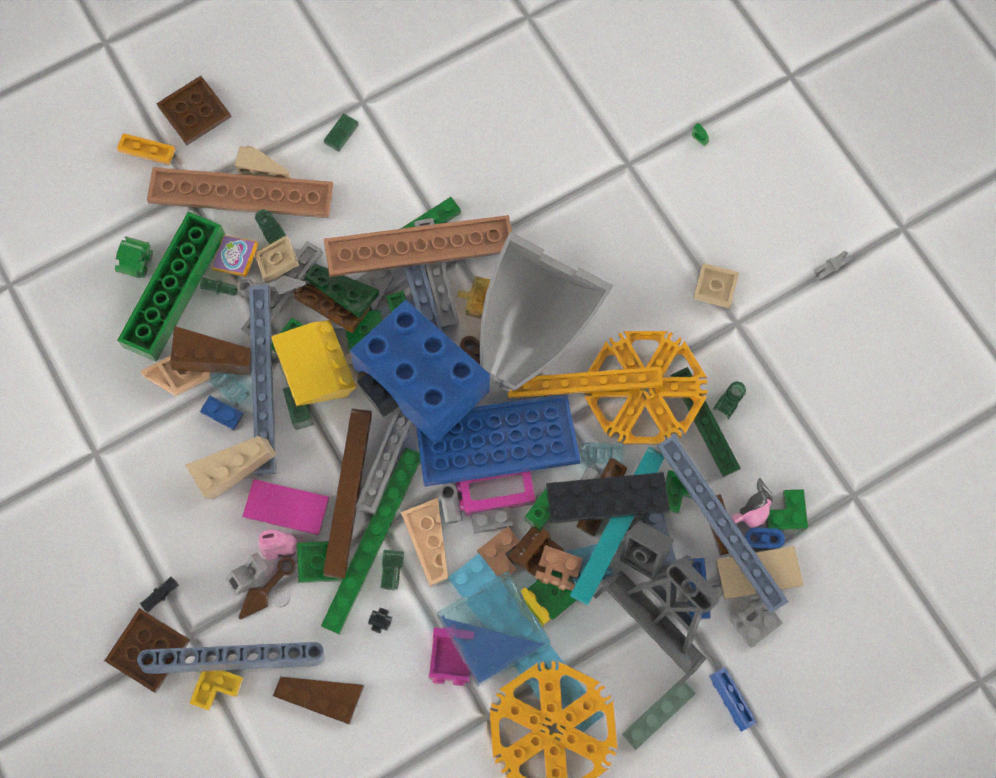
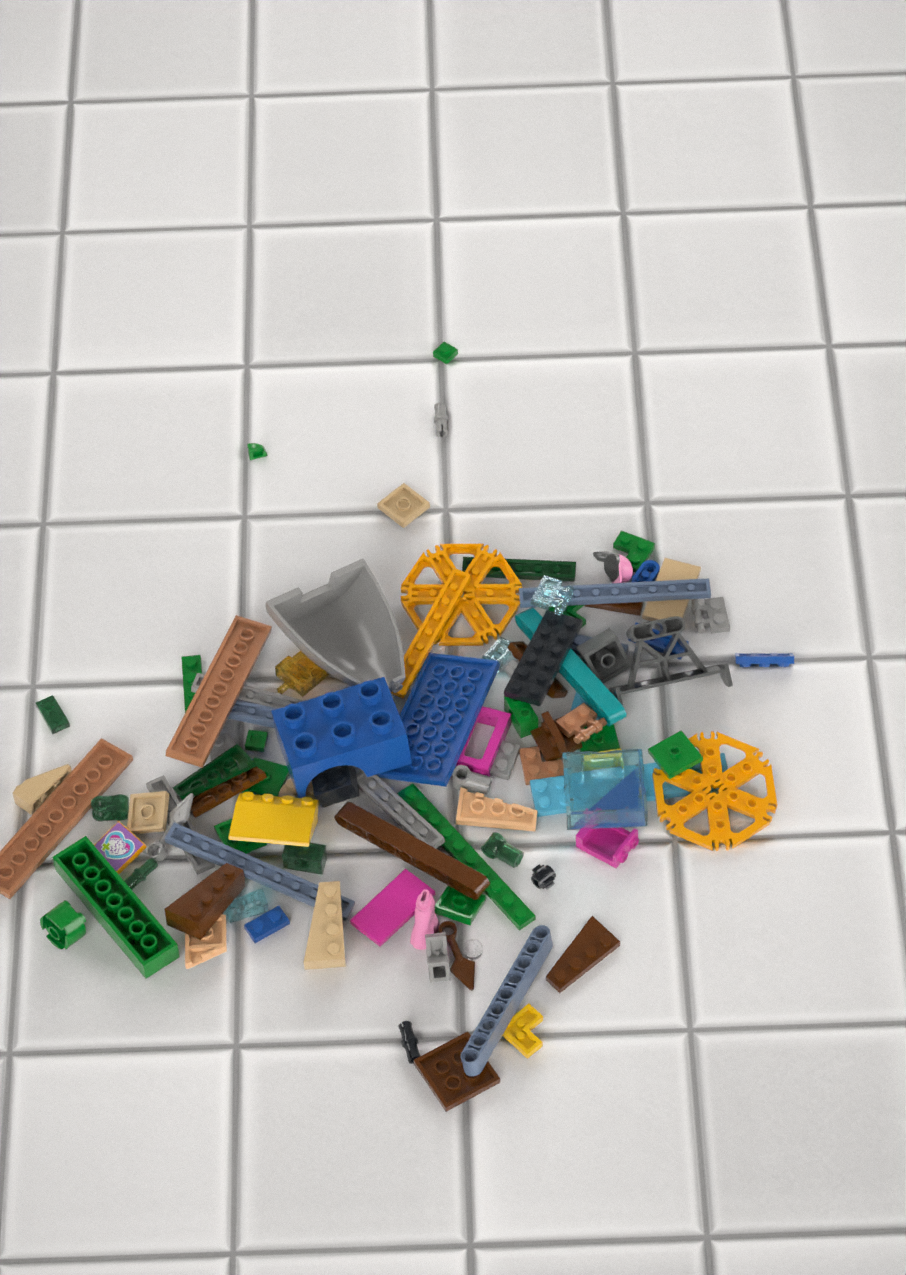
camera: 60 degrees left, 20 degrees down
(563, 675) = (675, 754): none -> green plate
(658, 714) = (745, 715): sand green plate -> none
(675, 463) = (546, 595): none -> clear light blue plate
(728, 401) = (511, 541): clear green piece -> none
(911, 227) = (445, 352): none -> green plate

